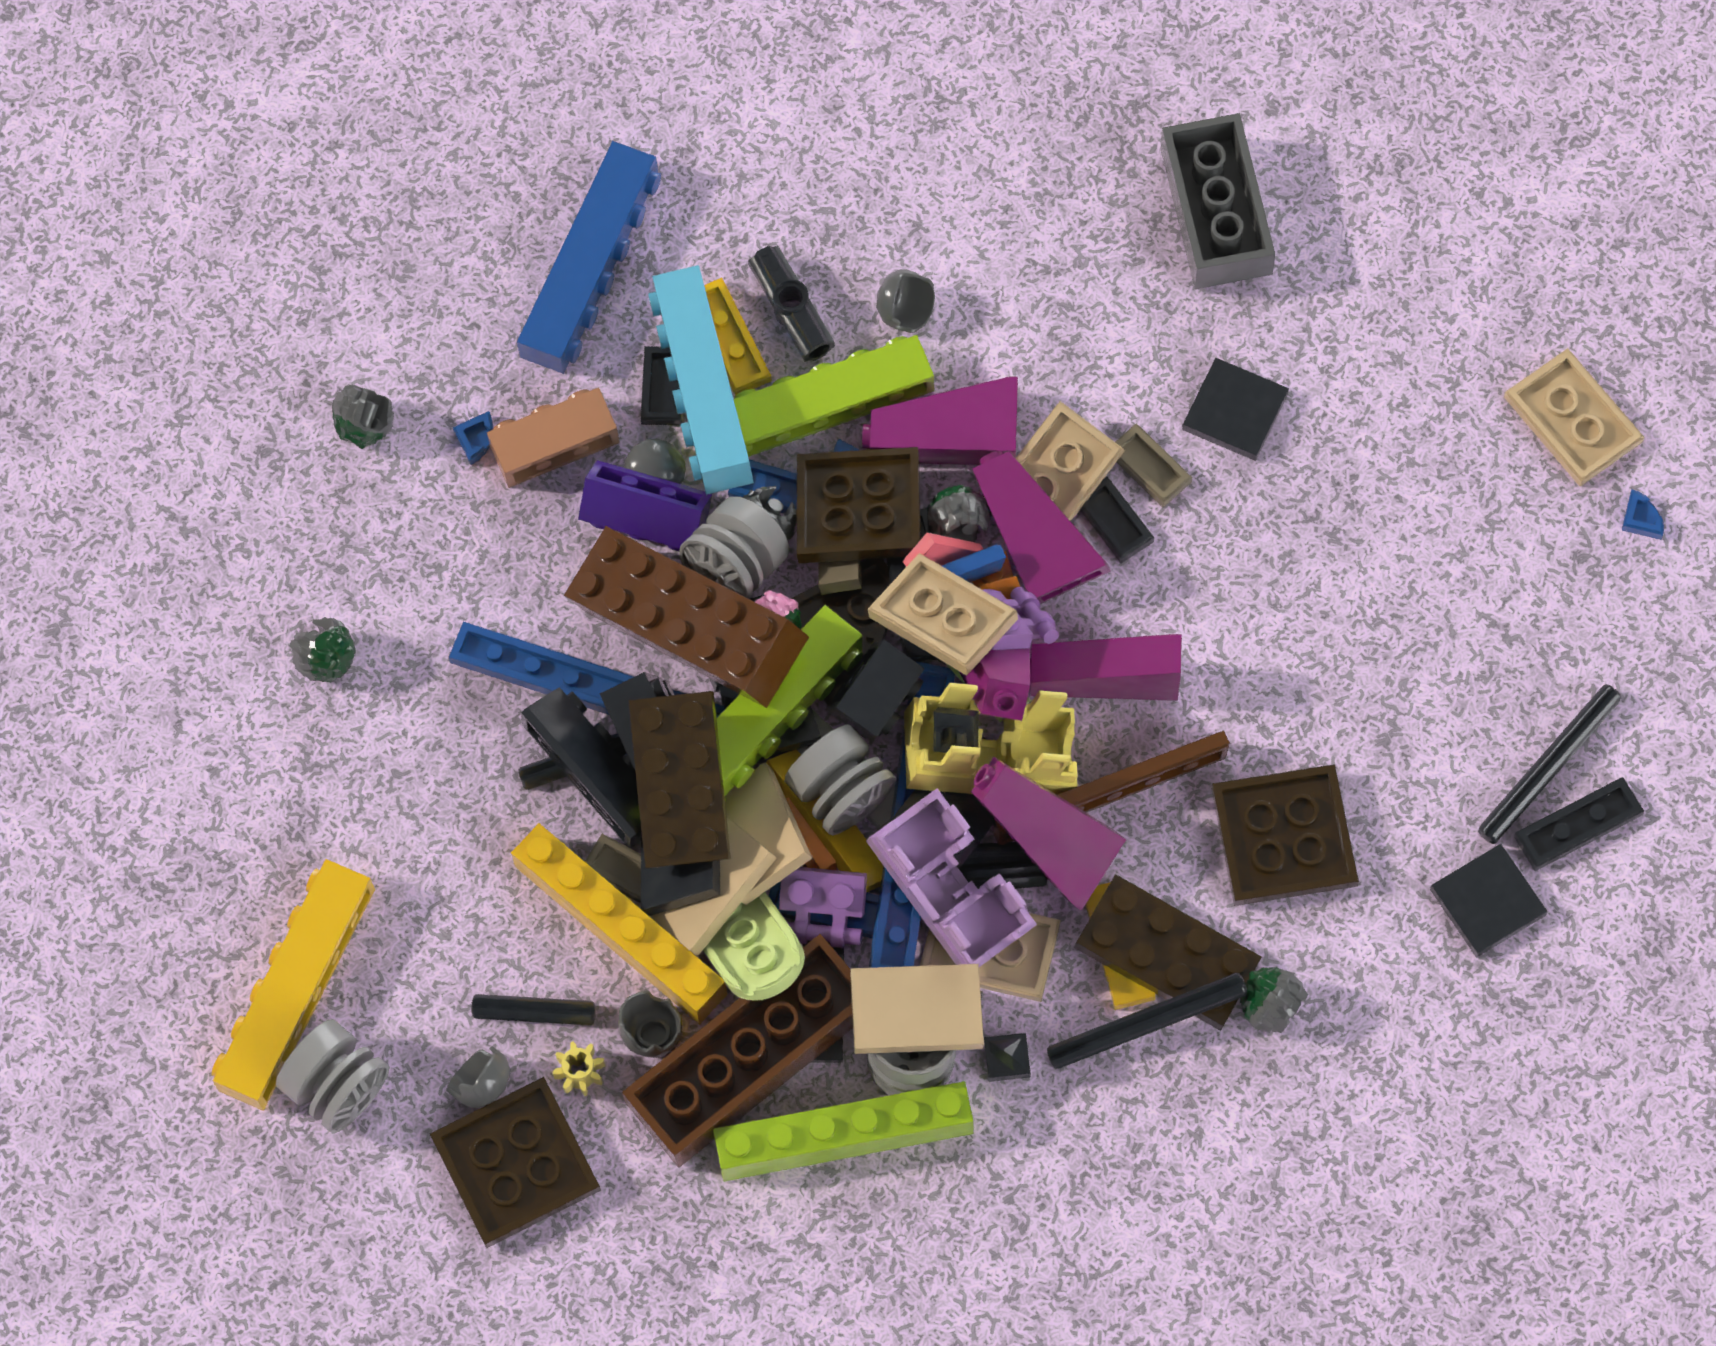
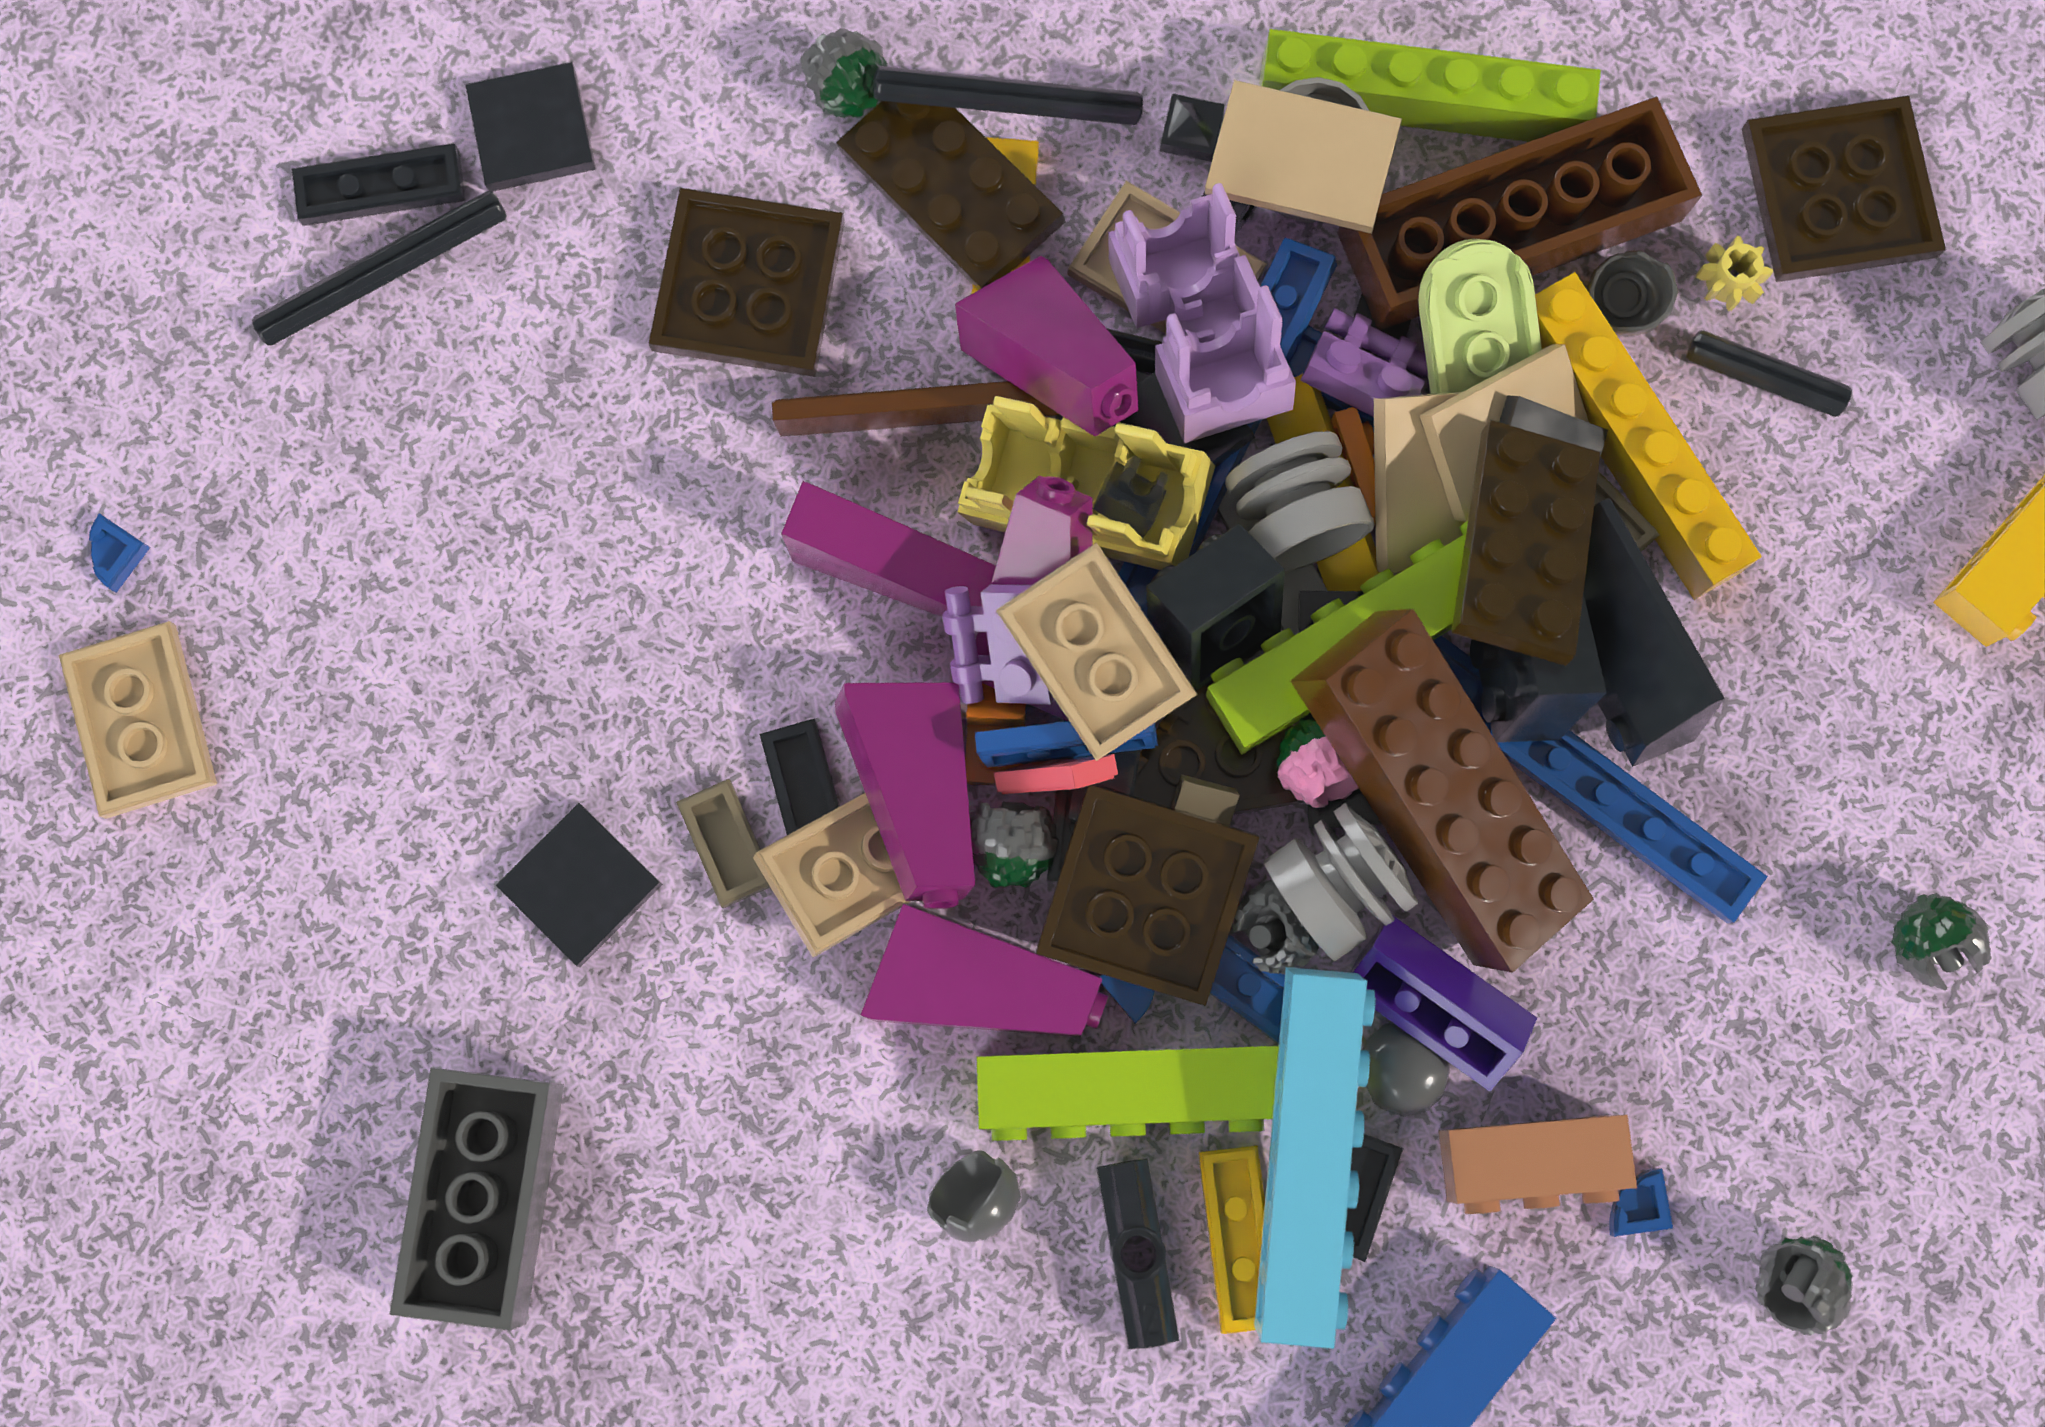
camera: 165 degrees left, 10 degrees up
(480, 1079) = (1867, 297): dark grey hair -> none

